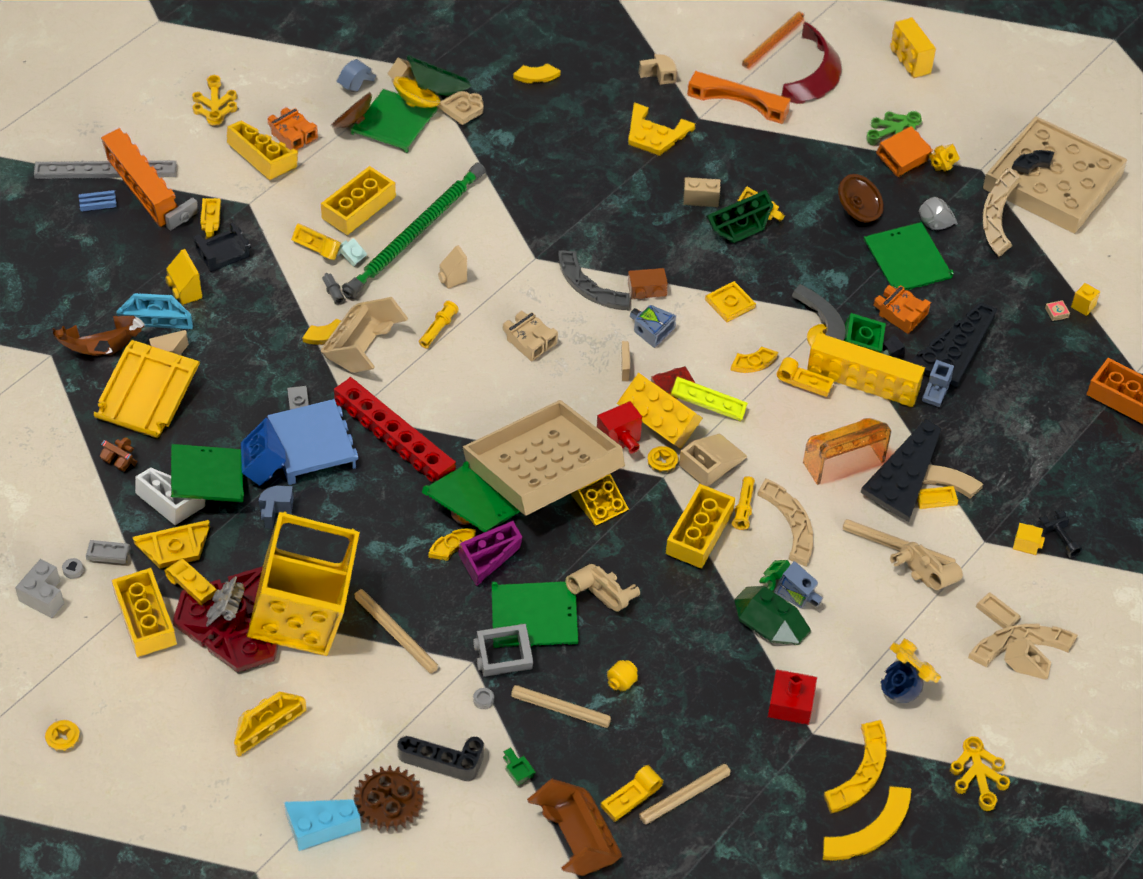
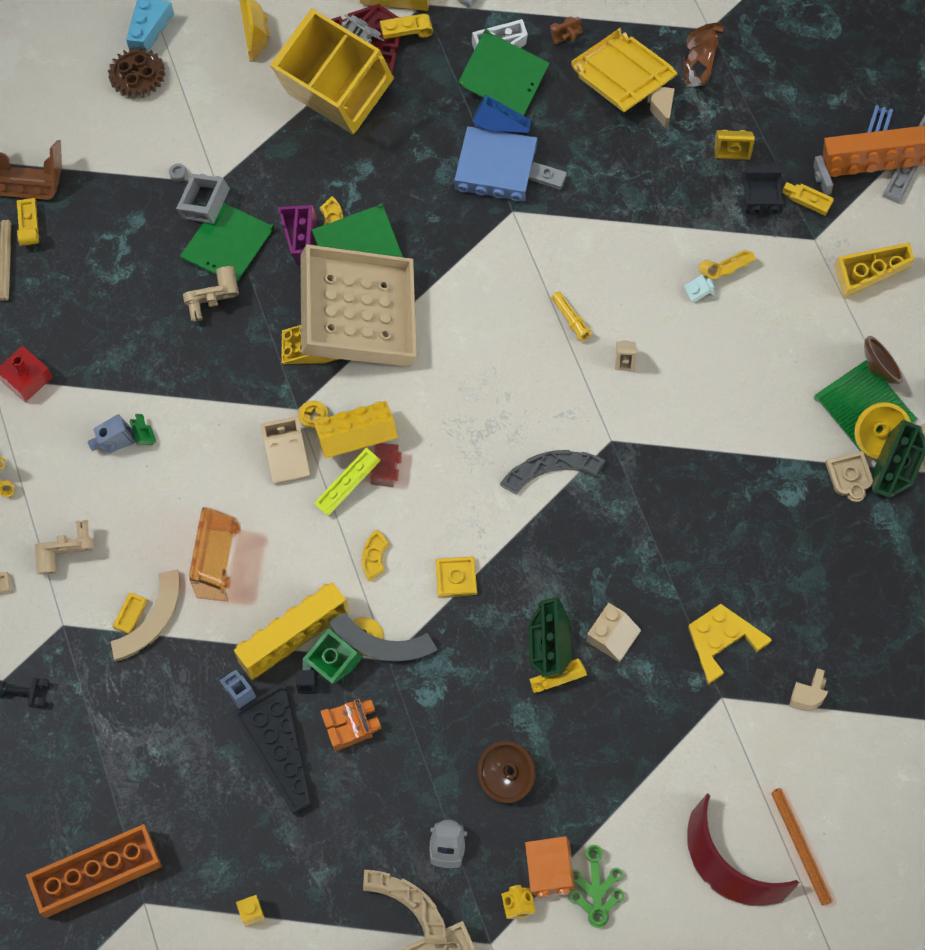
camera: 125 degrees right, 15 degrees up
(157, 311) = (708, 112): medium azure wedge -> none
(173, 544) = (451, 34): yellow wing -> none
(273, 501) = (449, 112): sand blue brick -> none
(292, 127) = (893, 309): orange hips -> none
(320, 334) = (613, 230): yellow tile -> none
(333, 288) = (662, 255): dark grey axle -> none
(358, 200) = (759, 317): yellow brick -> none
(358, 330) = (588, 237): tan windscreen -> none
(393, 430) = (479, 229): red brick -> none
(396, 631) = (278, 142): tan axle -> none
(410, 233) = (701, 353): green hose -> none
(412, 752) = (162, 103): black beam -> none
(518, 769) = (101, 162): green plate -> none
(530, 335) = (513, 381): tan hips -> none
(531, 74) = (865, 571): yellow tile -> none
(561, 706) = (133, 218): tan axle -> none
(622, 425) = (356, 387): red brick -> none
(622, 675) = (127, 268): yellow head -> none
(625, 361) = (435, 441): tan tile -> none
(647, 283) = (516, 511): dark orange brick -> none
(653, 324) = (464, 488): sand blue torso -> none
(700, 526) = (220, 397): yellow brick -> none
(710, 87) = (694, 772): orange arch -> none
(743, 509) = (219, 445): yellow pin -> none
(771, 616) = (105, 401): dark green wedge -> none
(796, 517) = (184, 485): tan tile -> none
(810, 381) = (335, 572): yellow plate -> none
(887, 540) = (104, 549): tan axle -> none
(902, 475) = (165, 593): black wing -> none
(908, 257) = (413, 778): green door -> none
(1028, 539) = (34, 656): yellow brick -> none
(1057, 310) = (259, 878): tan tile -> none

